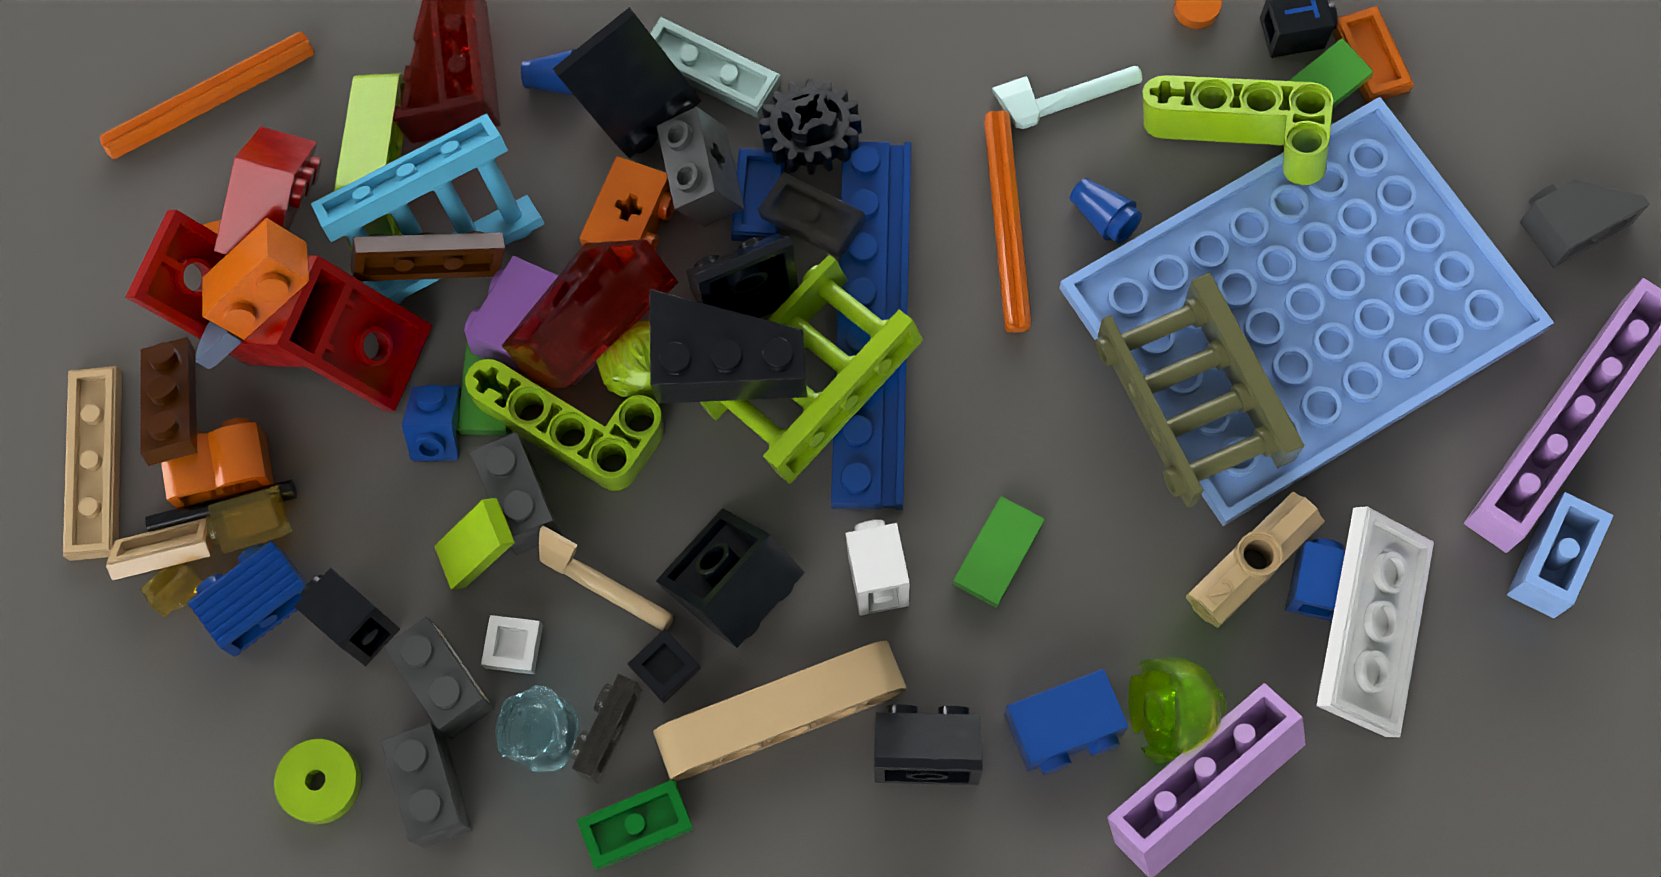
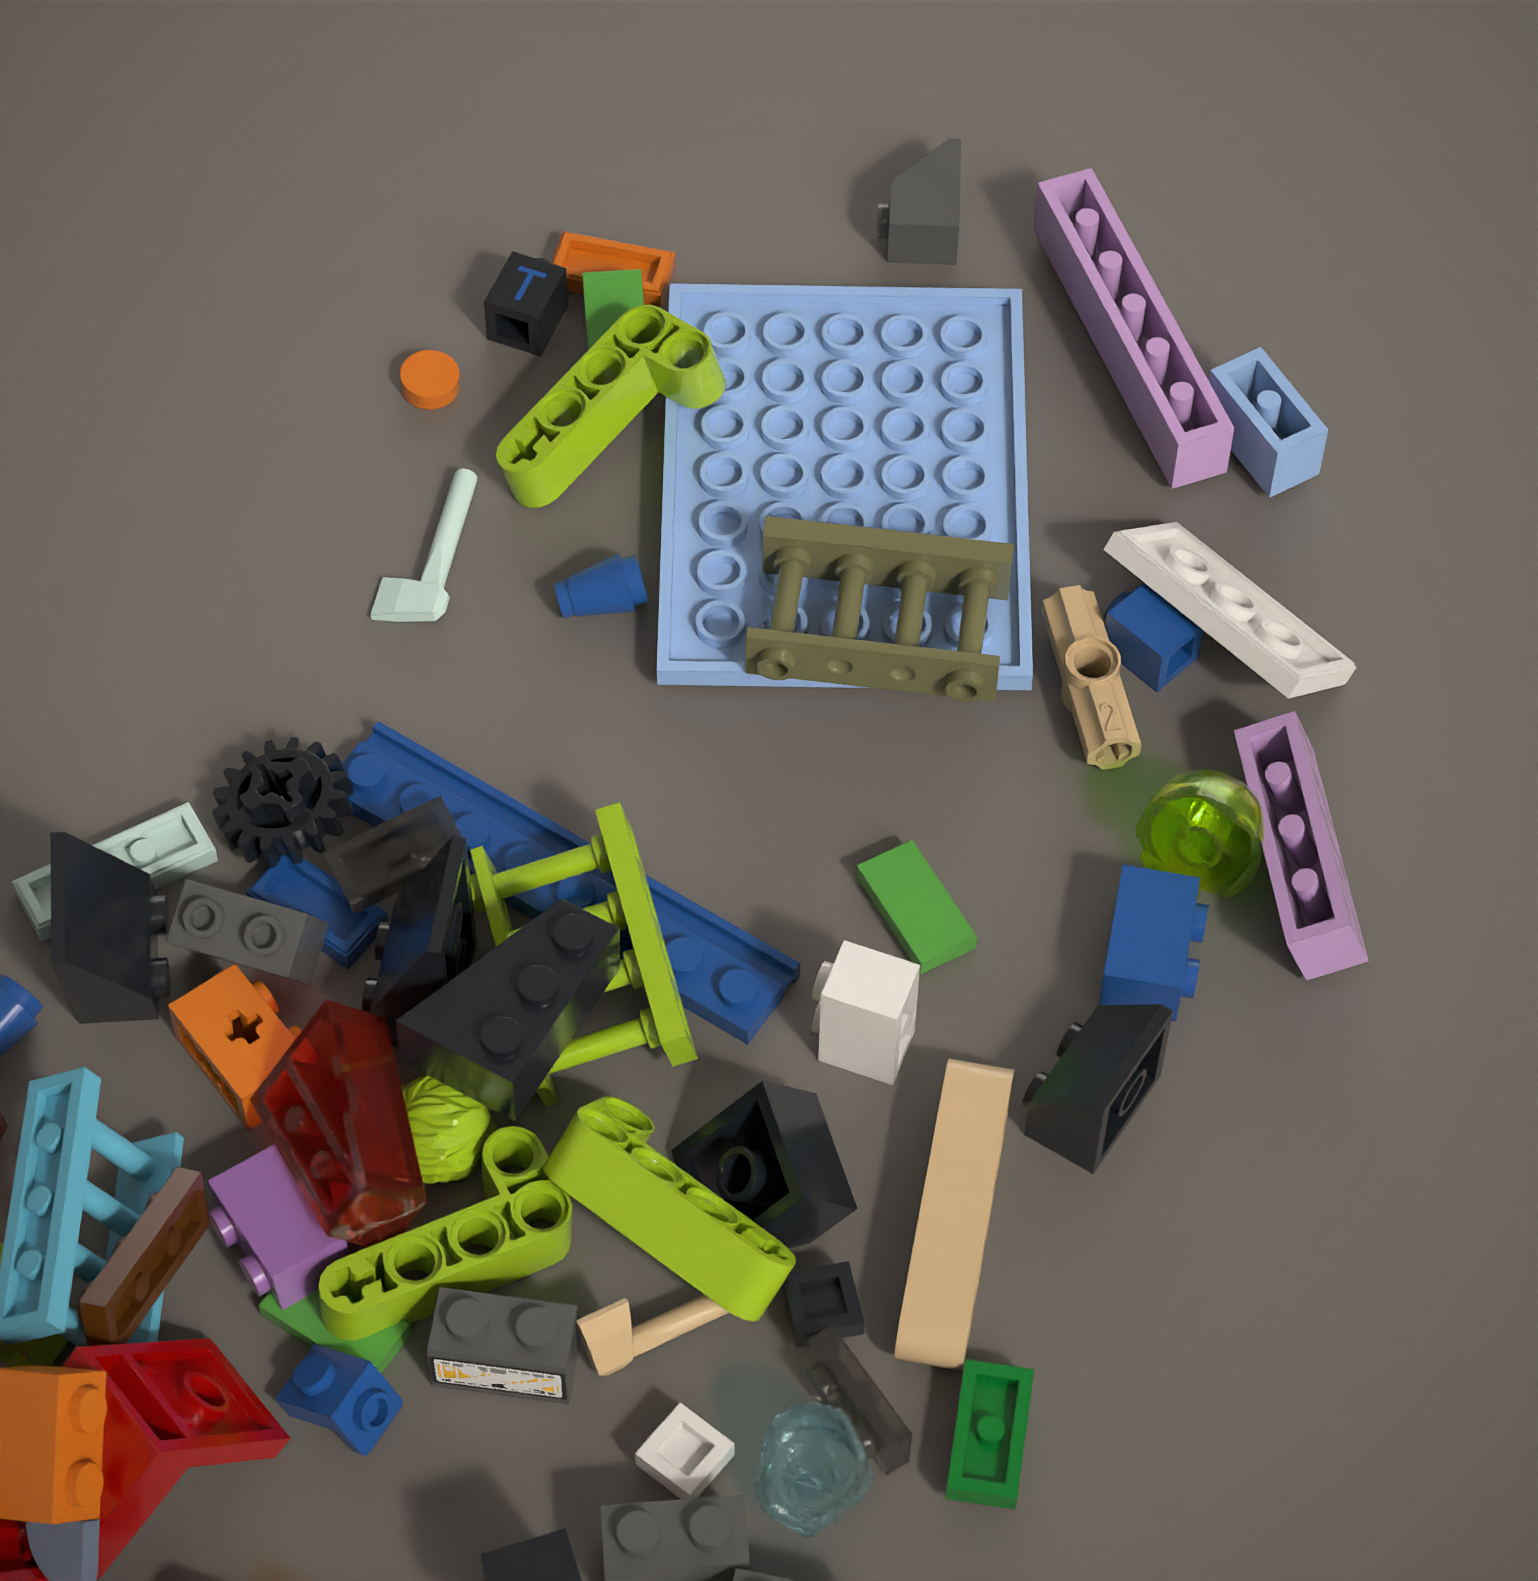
camera: 65 degrees left, 15 degrees down
(474, 543) = (539, 1417): lime tile -> none
(650, 528) = (665, 1210): none -> lime beam
(1007, 222) = (542, 686): orange axle -> none

